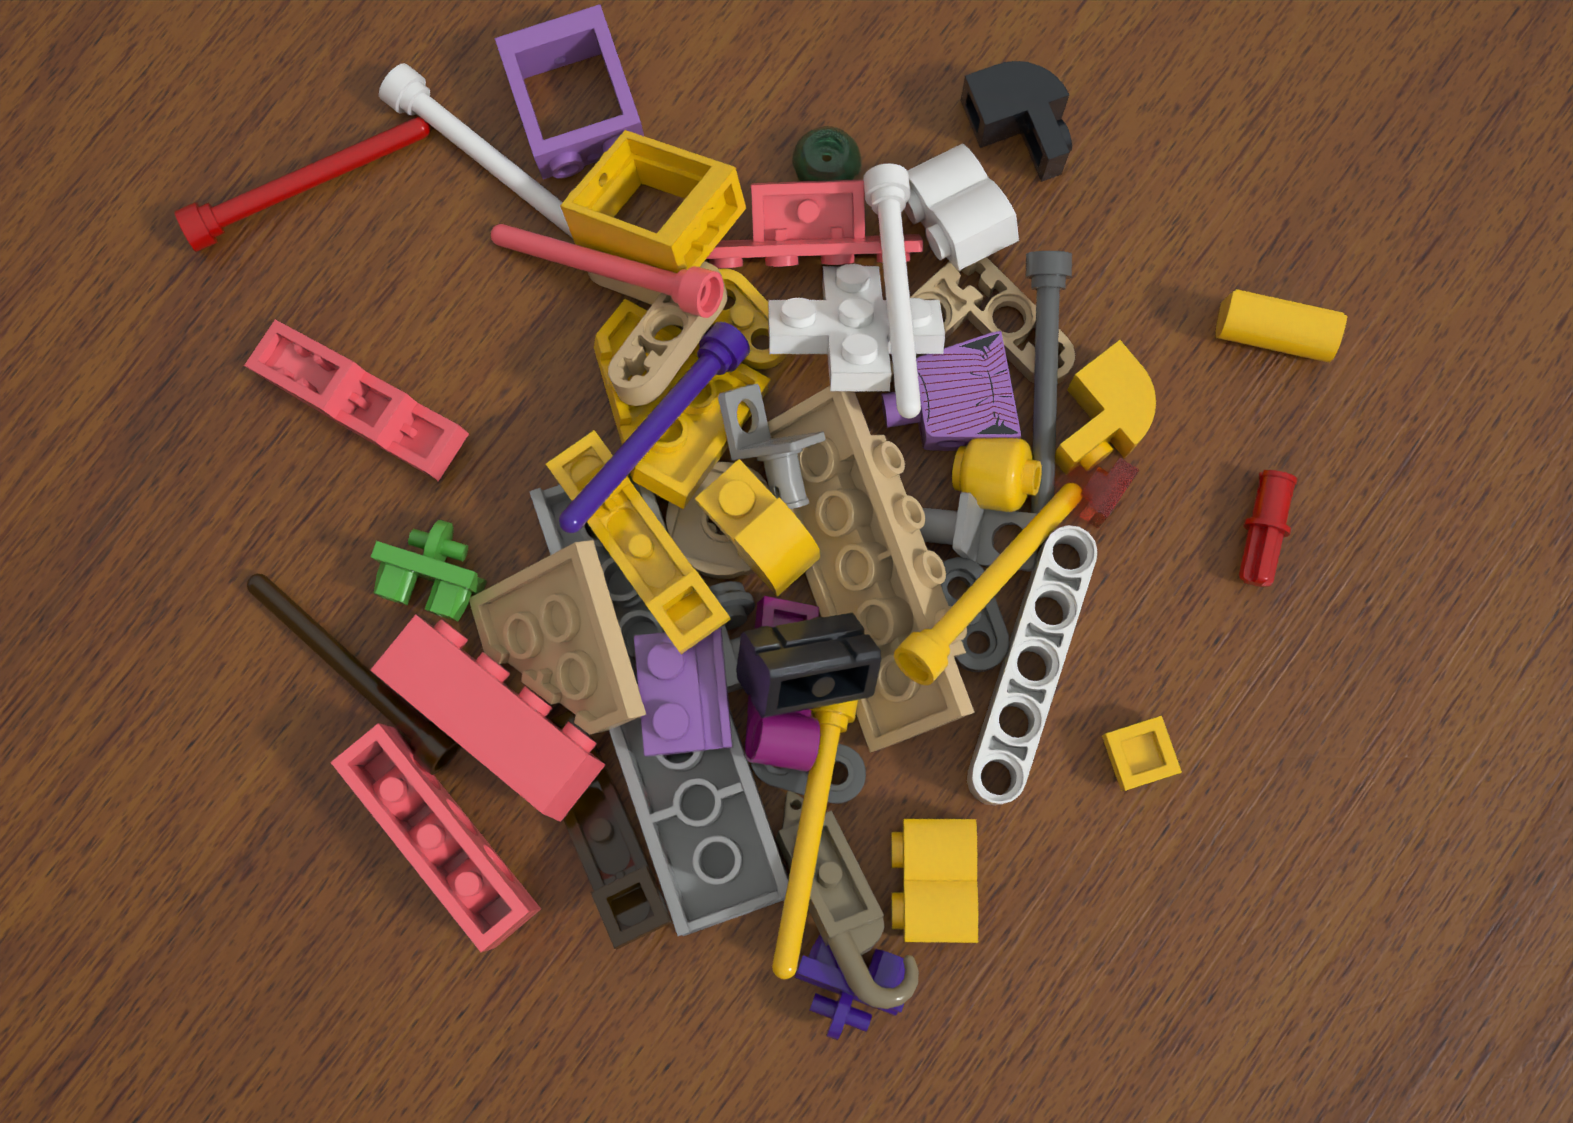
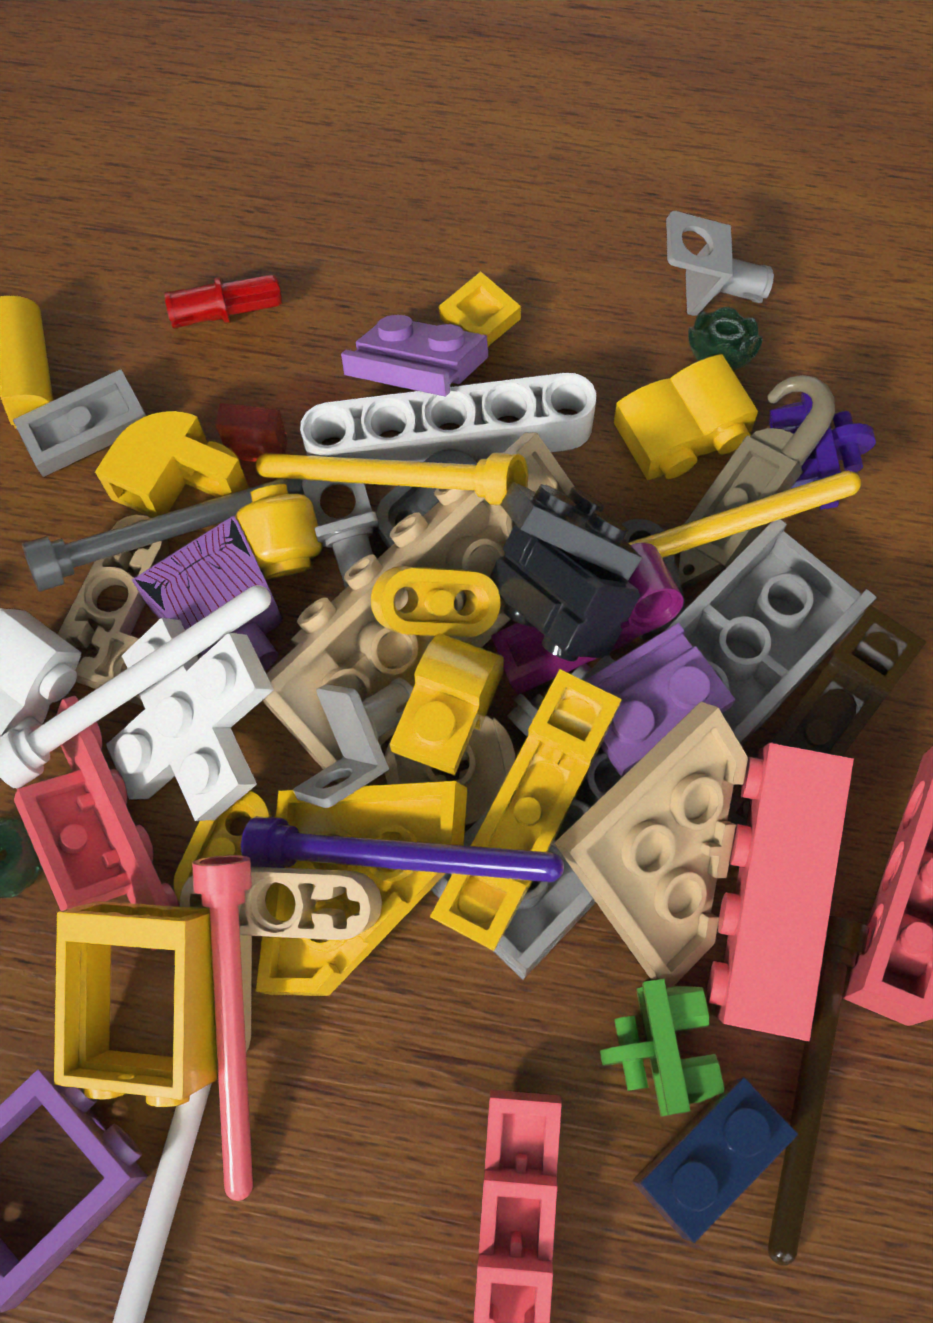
camera: 120 degrees left, 10 degrees down
(335, 561) = (714, 1159): none -> dark blue brick
(847, 695) = (572, 524): none -> black plate
(849, 554) = (431, 601): none -> yellow plate
(1017, 973) = (725, 334): none -> clear green plate
(1080, 991) = (713, 267): none -> light grey bracket
(1113, 666) = (416, 355): none -> medium lavender plate
(1190, 355) = (79, 422): none -> light grey plate

